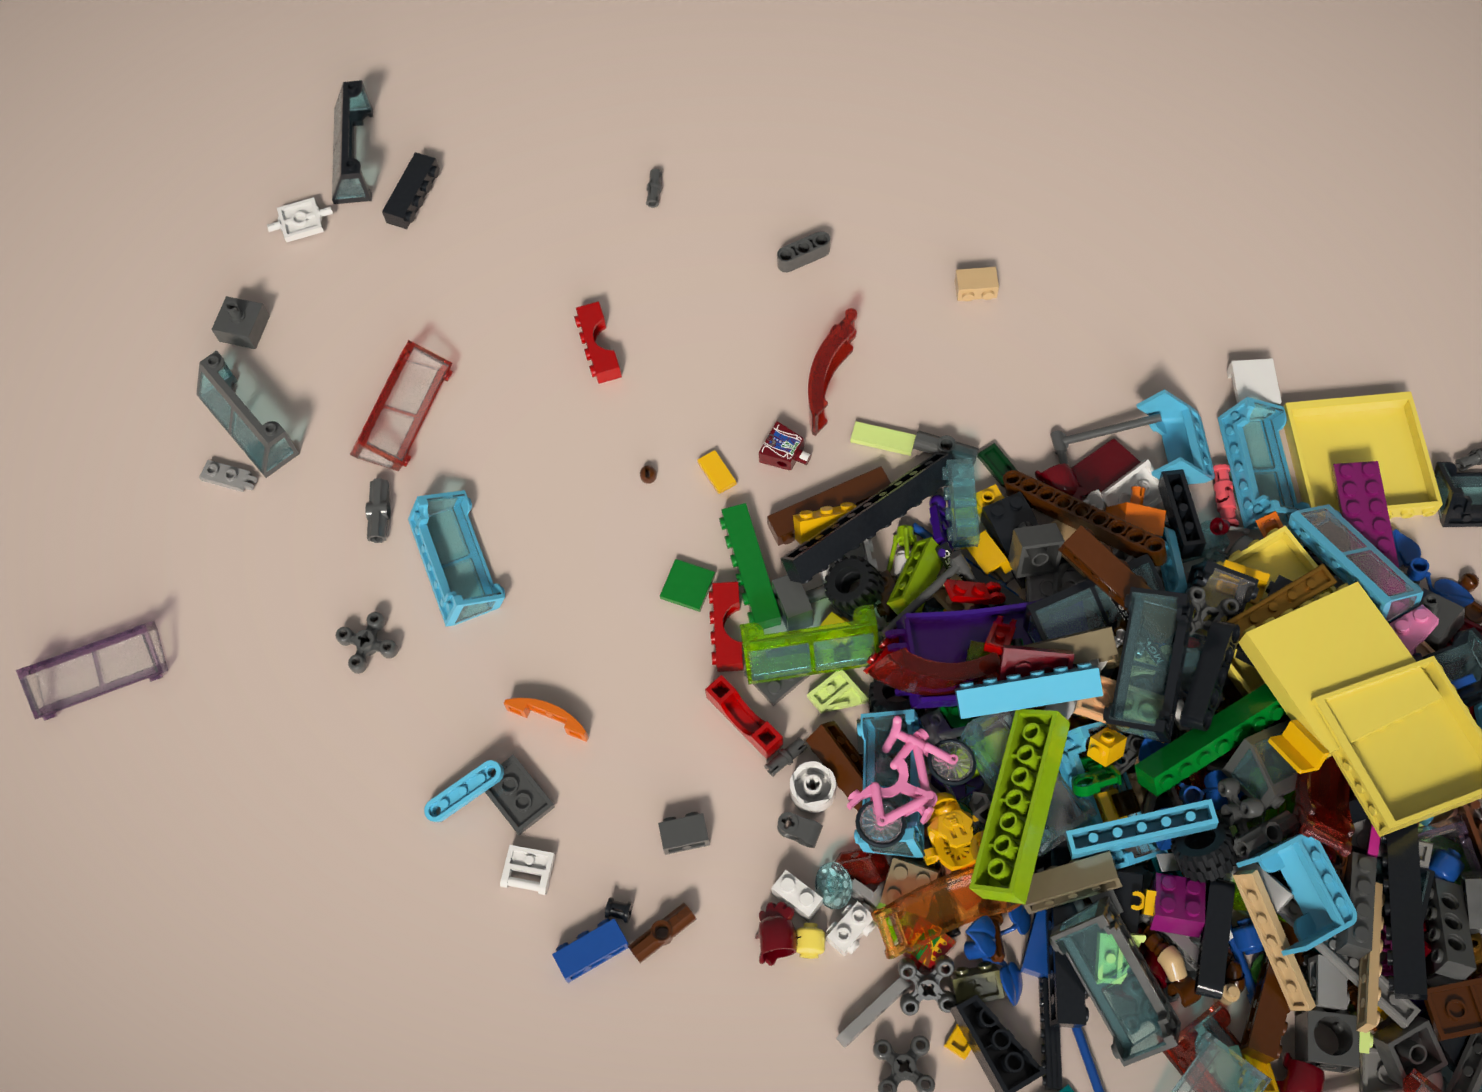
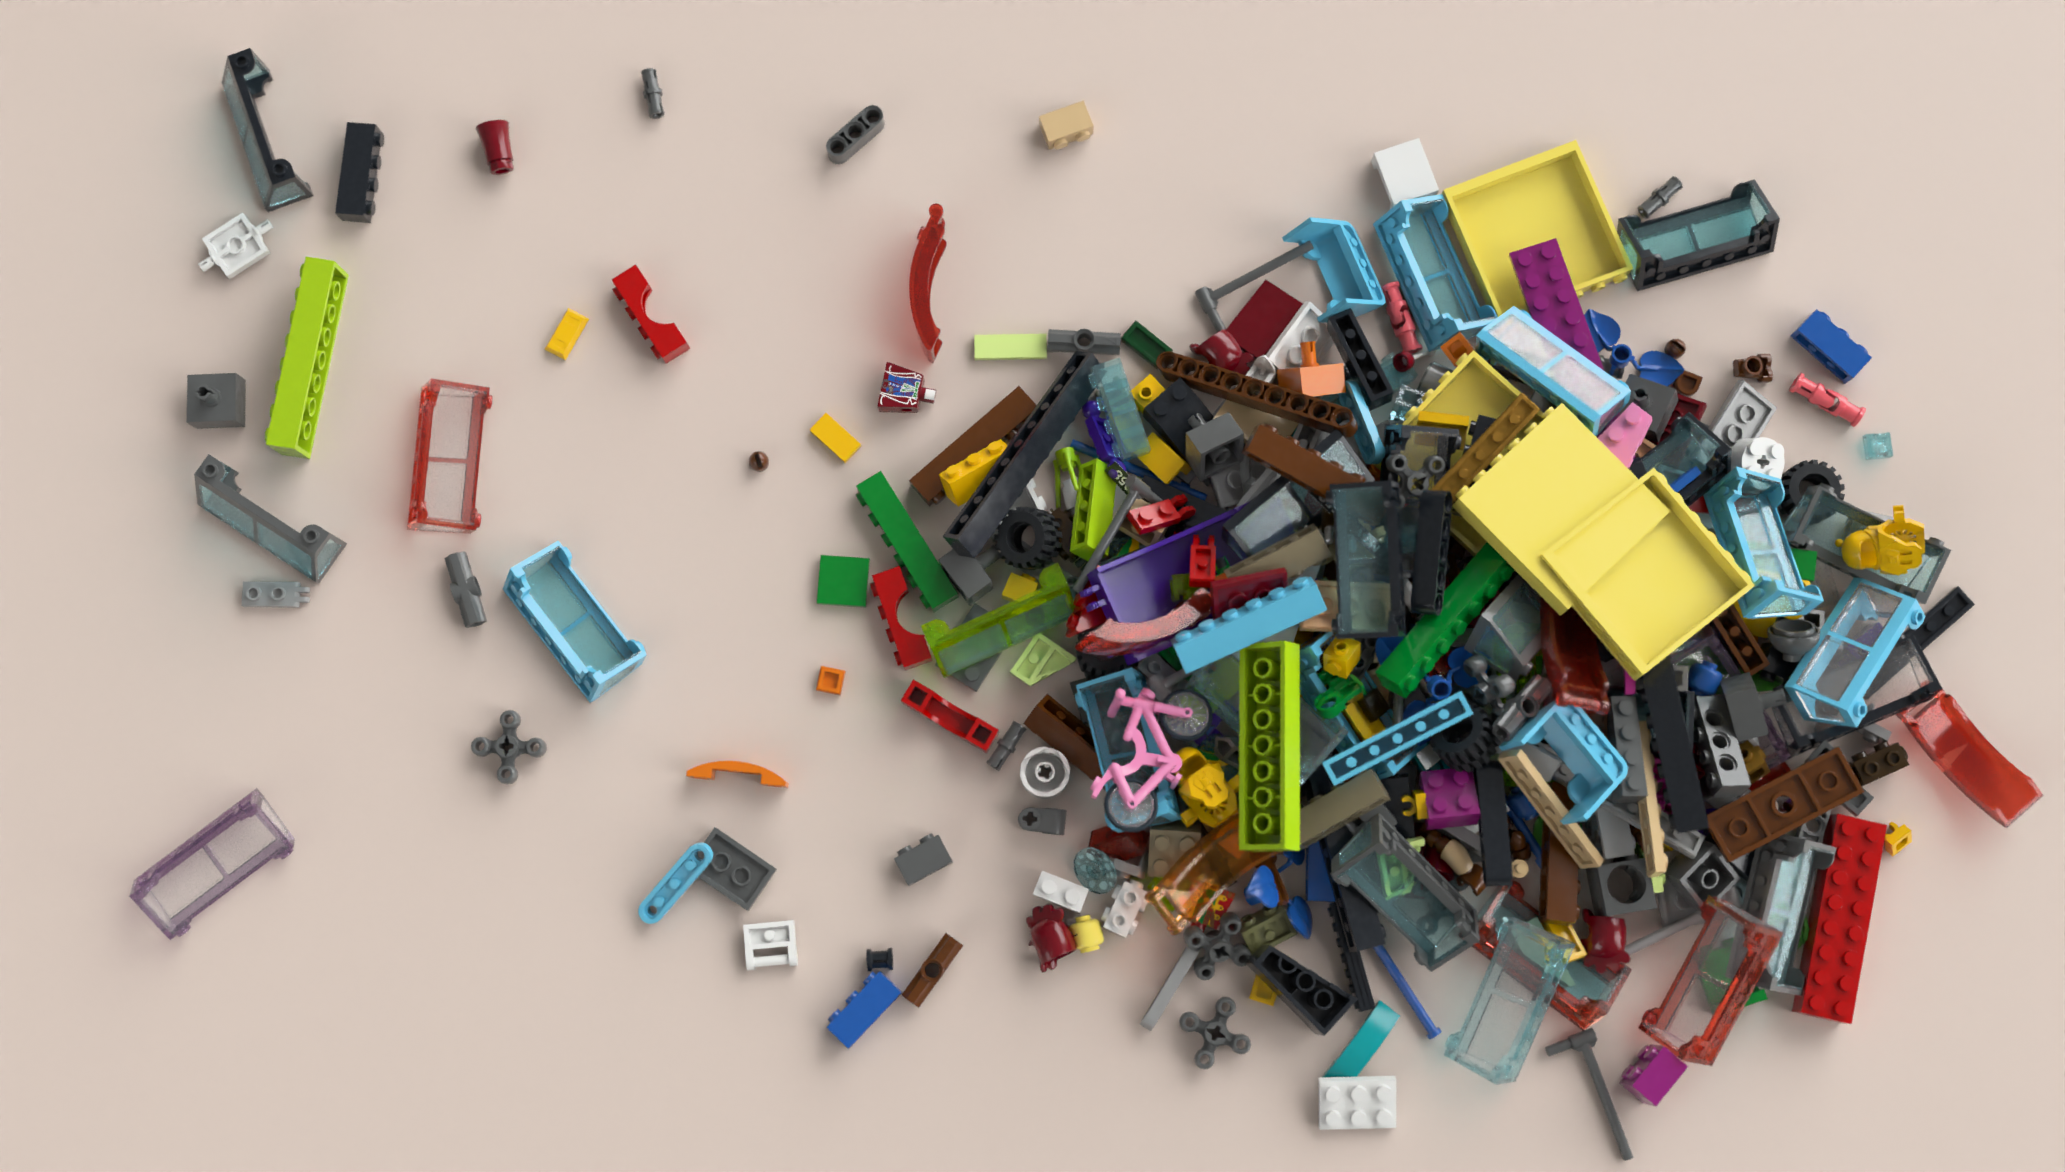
camera: 20 degrees left, 15 degrees up
(320, 308) = (306, 358): none -> lime brick
(521, 195) = (496, 145): none -> dark red plant
(527, 342) = (566, 334): none -> yellow tile
(651, 662) = (830, 680): none -> orange tile
(1299, 748) = (1537, 609): yellow panel -> none

